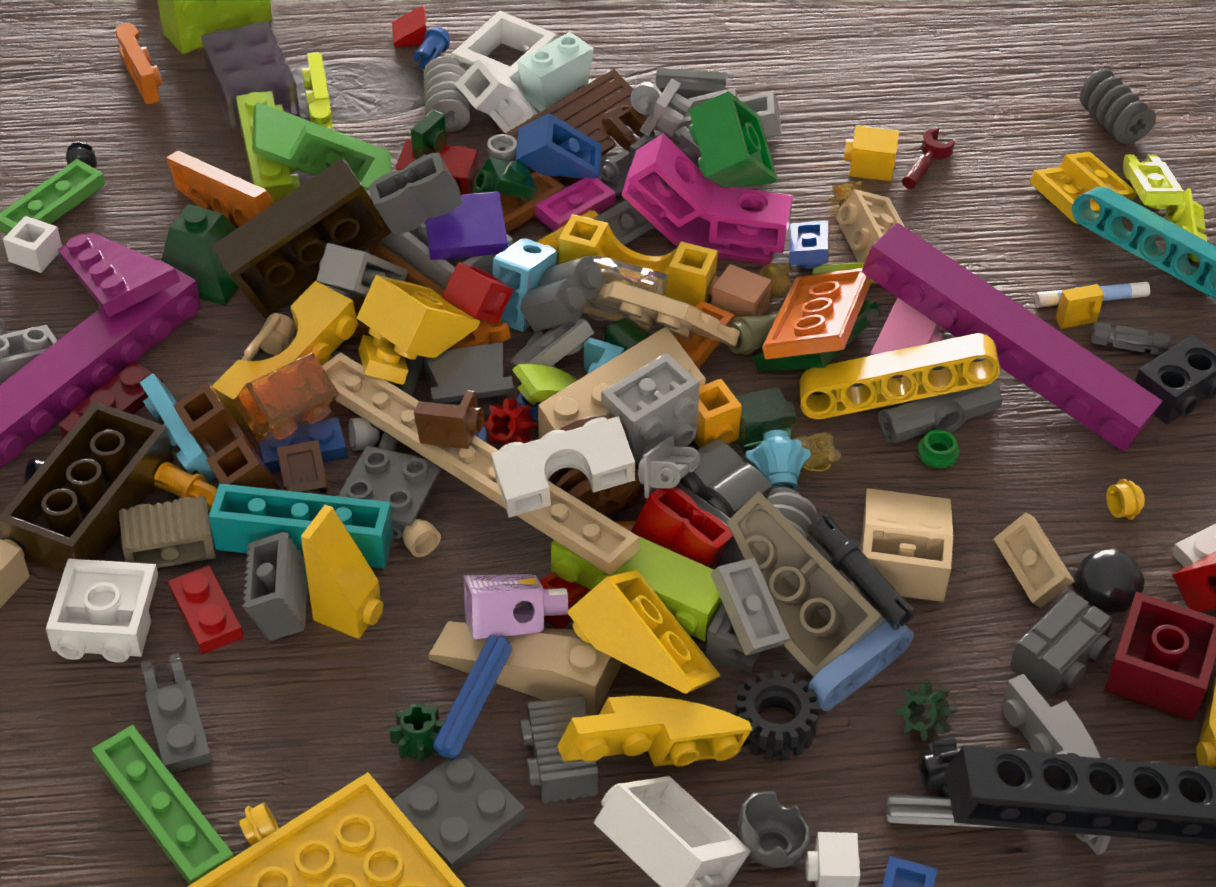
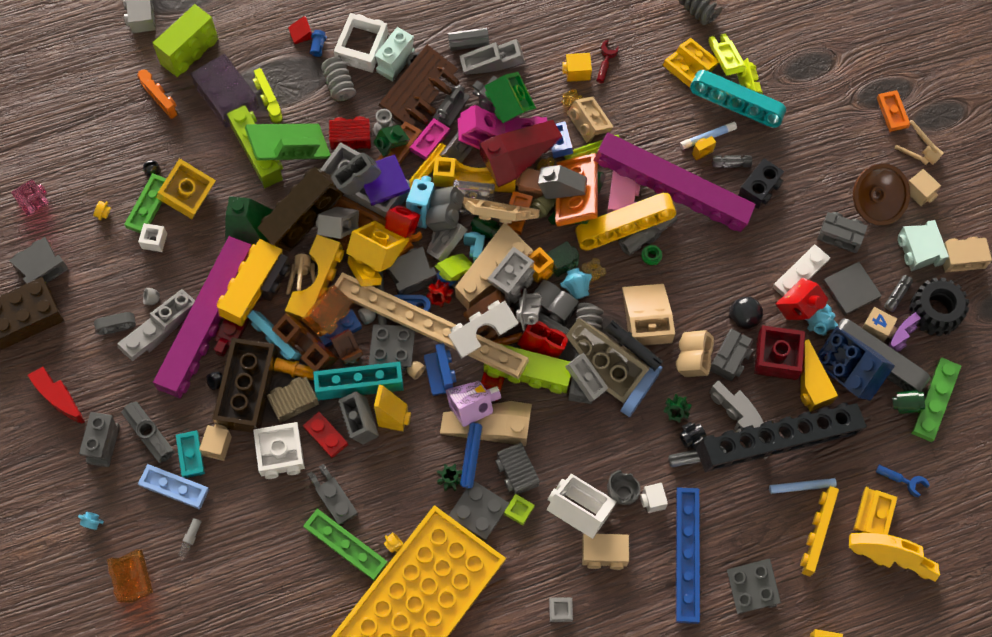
camera: 15 degrees left, 20 degrees up
(115, 273) = (205, 249): magenta wing -> none
(119, 183) = (185, 188): none -> yellow brick
(166, 330) = (245, 288): none -> yellow brick
(215, 339) = (273, 281): none -> black bracket
(218, 189) = (247, 183): orange wing -> none
(428, 134) = (344, 121): dark green plate -> none
(449, 424) = (416, 313): reddish brown bracket -> none
(464, 543) = (438, 370): none -> blue bracket
(496, 95) = (368, 76): white brick -> none
(541, 824) = (519, 509): none -> lime plate
(557, 149) = (414, 112): blue slope -> none
(637, 628) = (541, 406): yellow slope -> none
(665, 108) = (461, 68): light grey hips -> none
(665, 727) = (560, 452): yellow slope -> none
(712, 224) = (516, 150): none -> dark red wedge
(782, 694) = (616, 415): black tyre -> none
(789, 289) = (561, 182): none -> dark grey slope
(986, 622) = (695, 353): none -> tan brick
(1033, 560) = (709, 310): tan plate -> none
(1125, 499) = (746, 263): yellow plate -> none

